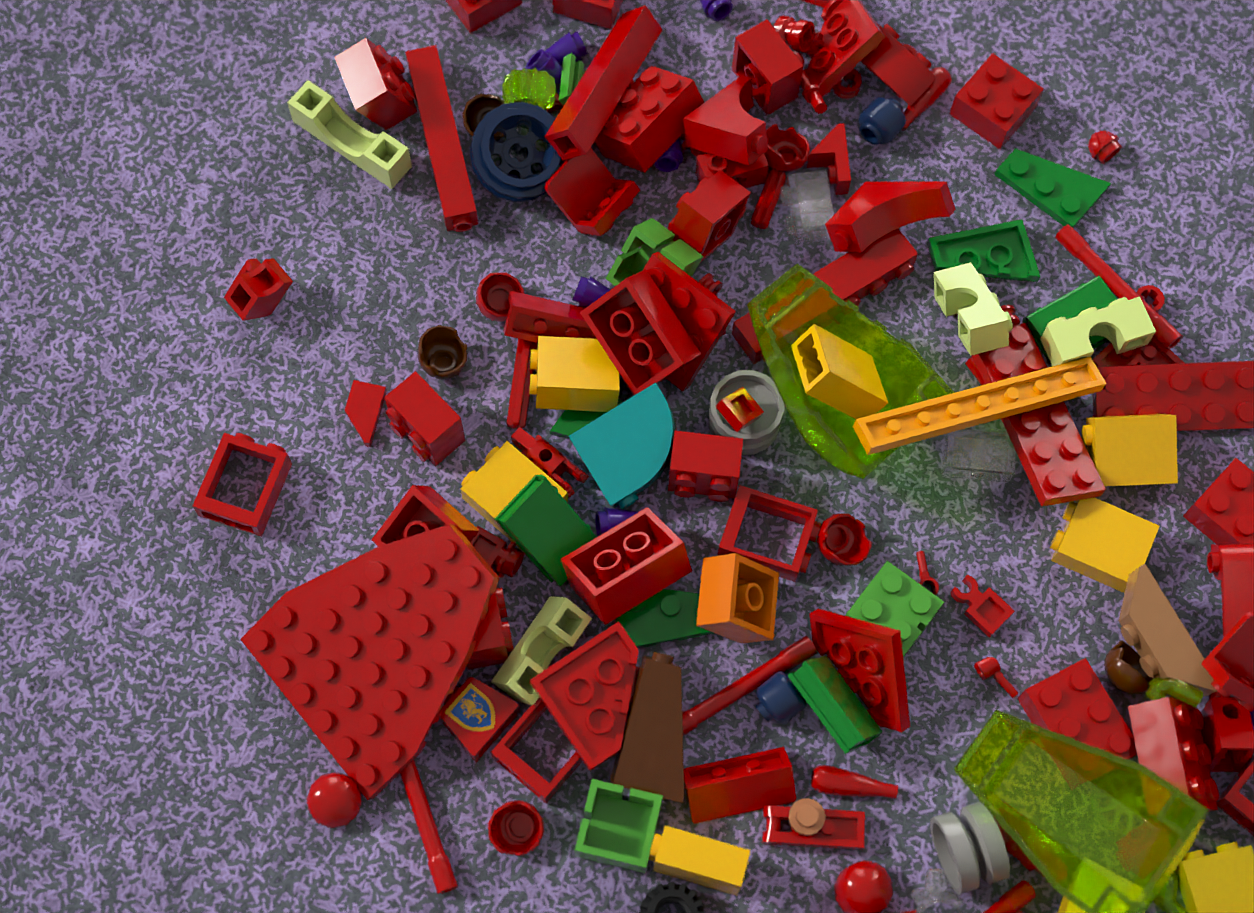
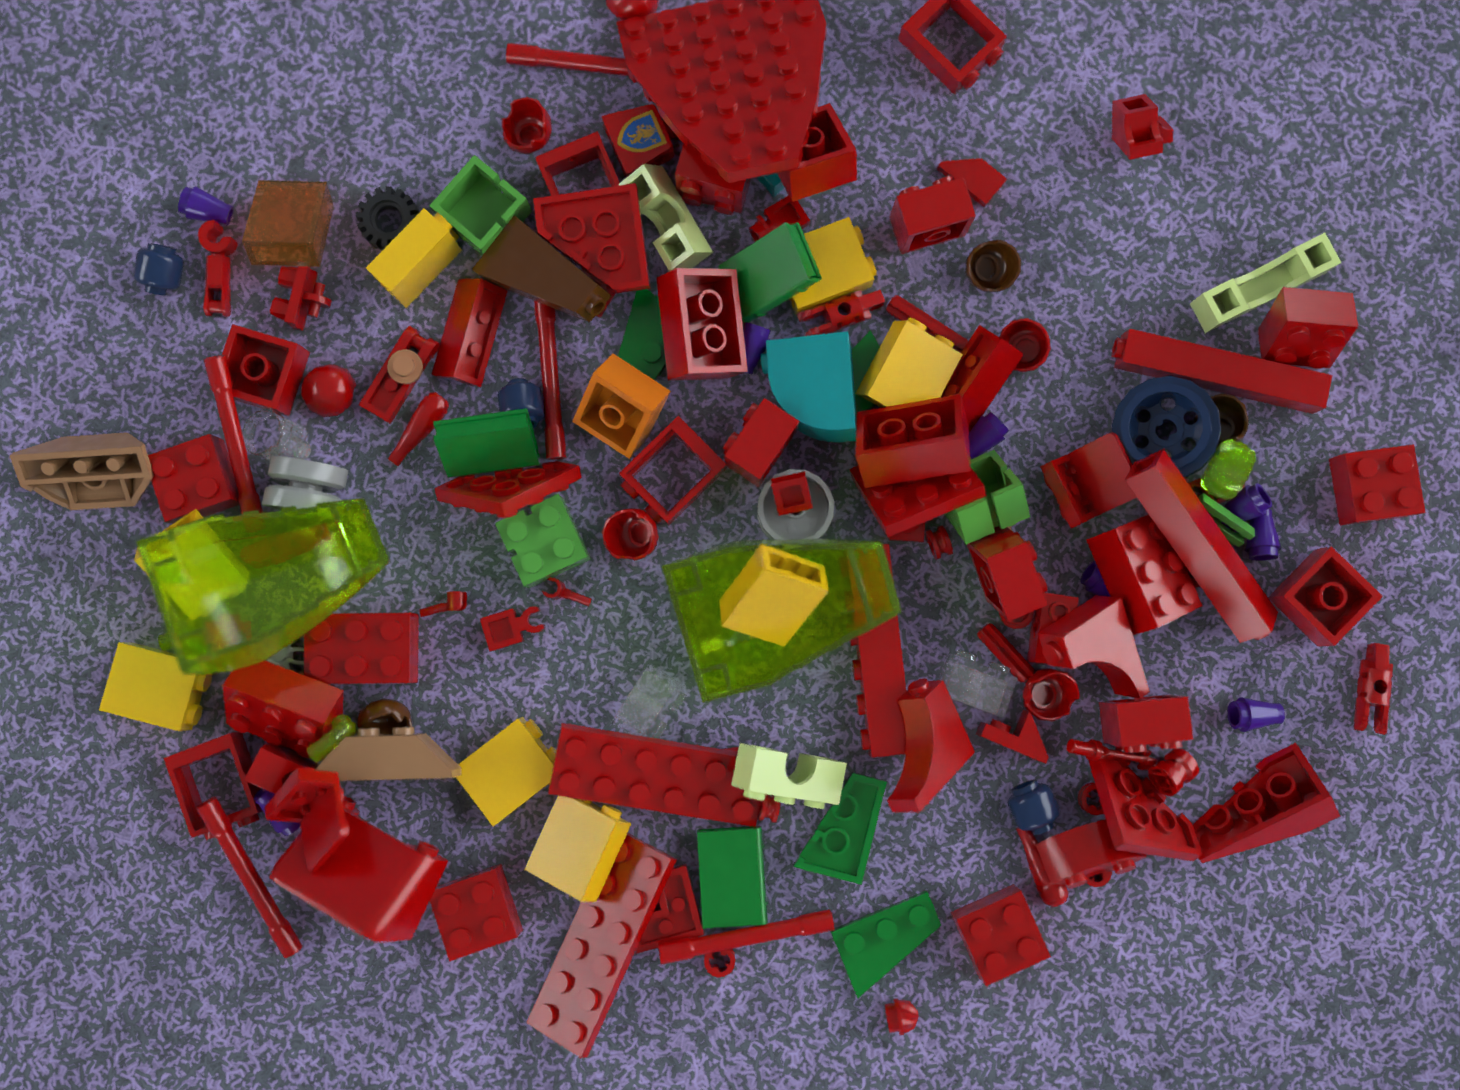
camera: 120 degrees right, 15 degrees up
(978, 405) = (679, 714): light orange plate -> none
(1122, 323) = (699, 913): yellowish green arch -> none

